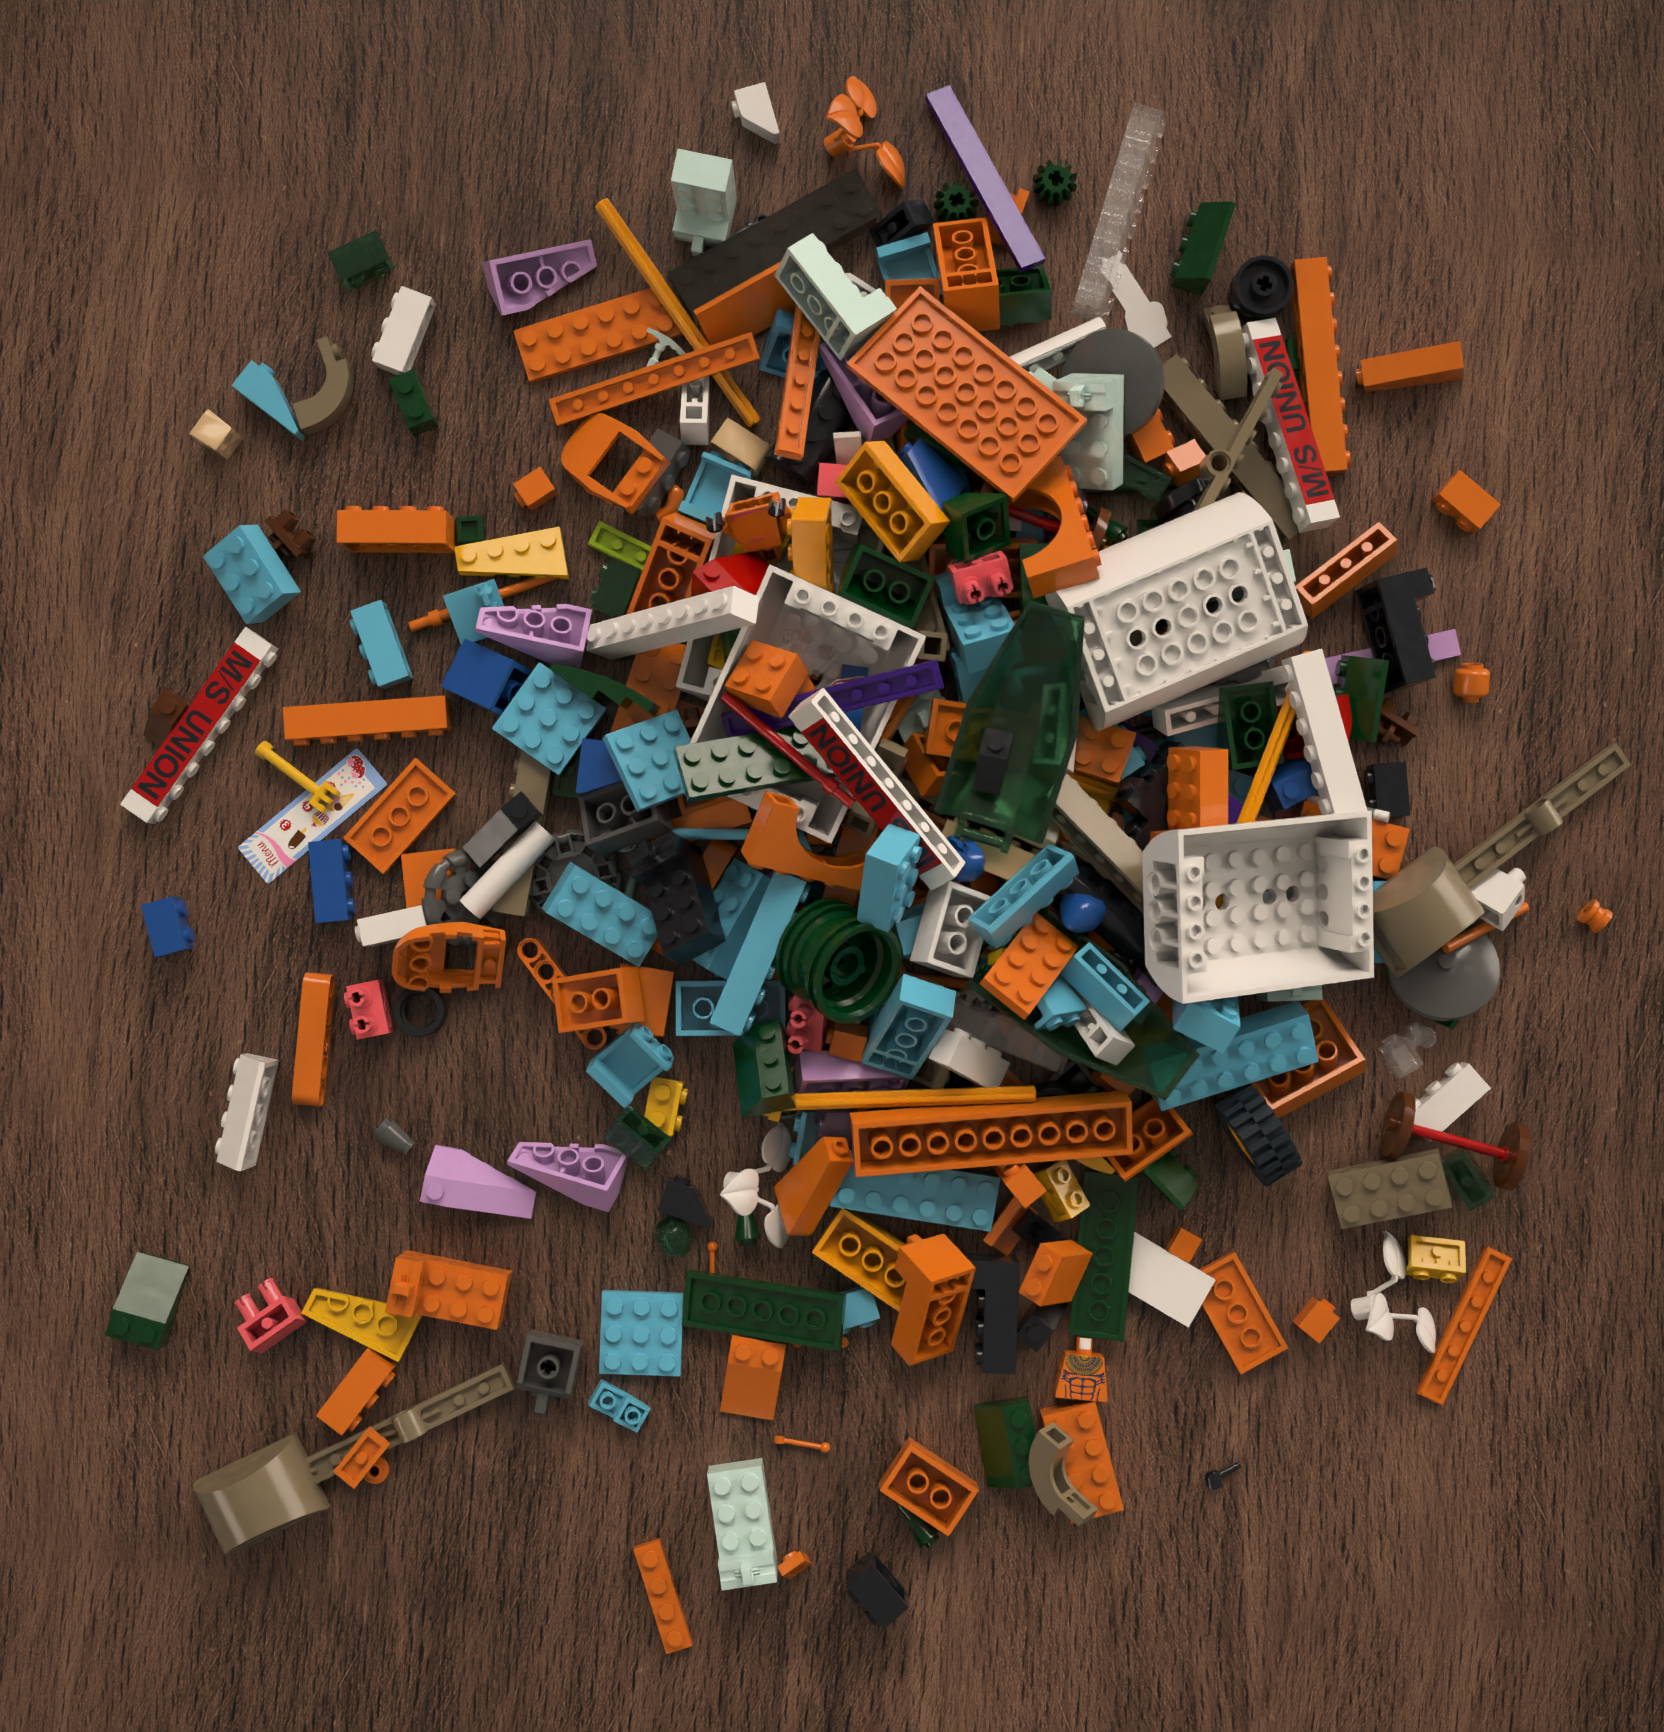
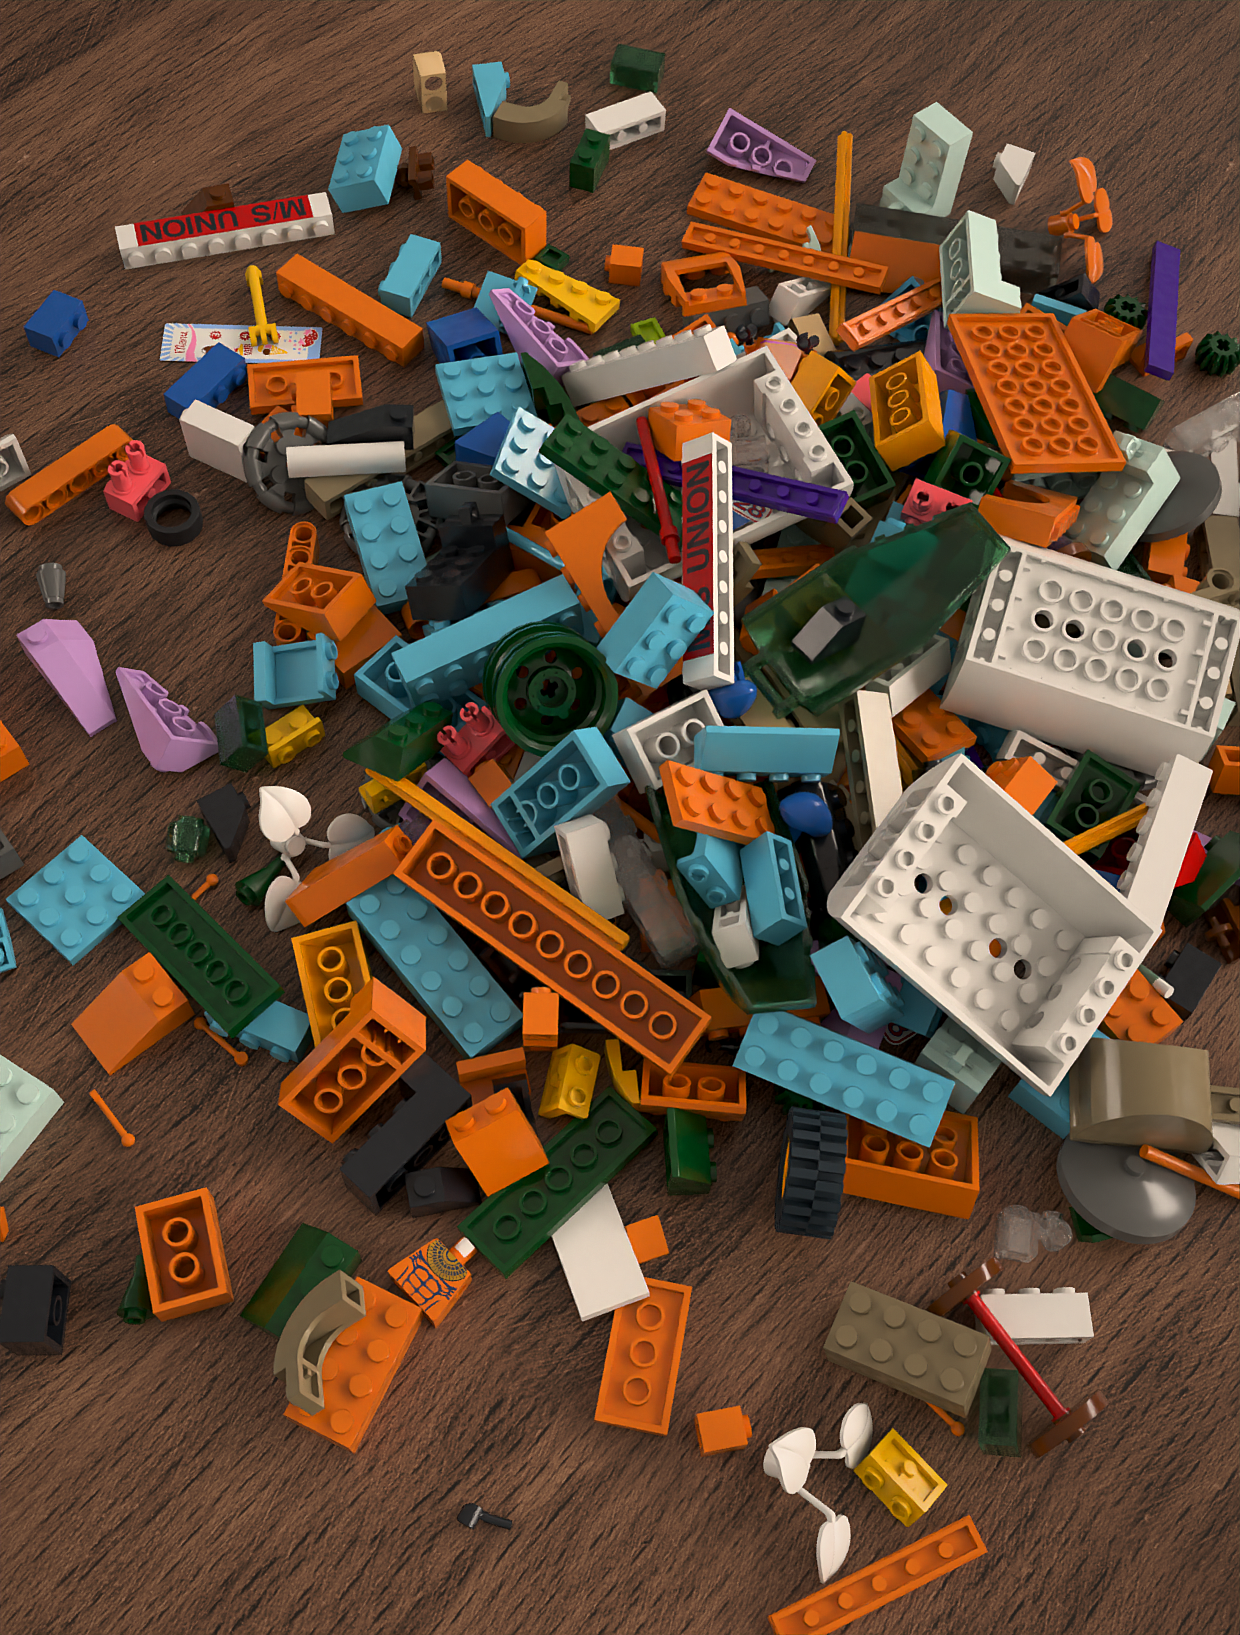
camera: 35 degrees right, 25 degrees down
(421, 957) = (212, 468): orange slope -> none
(430, 834) = (313, 395): none -> orange brick

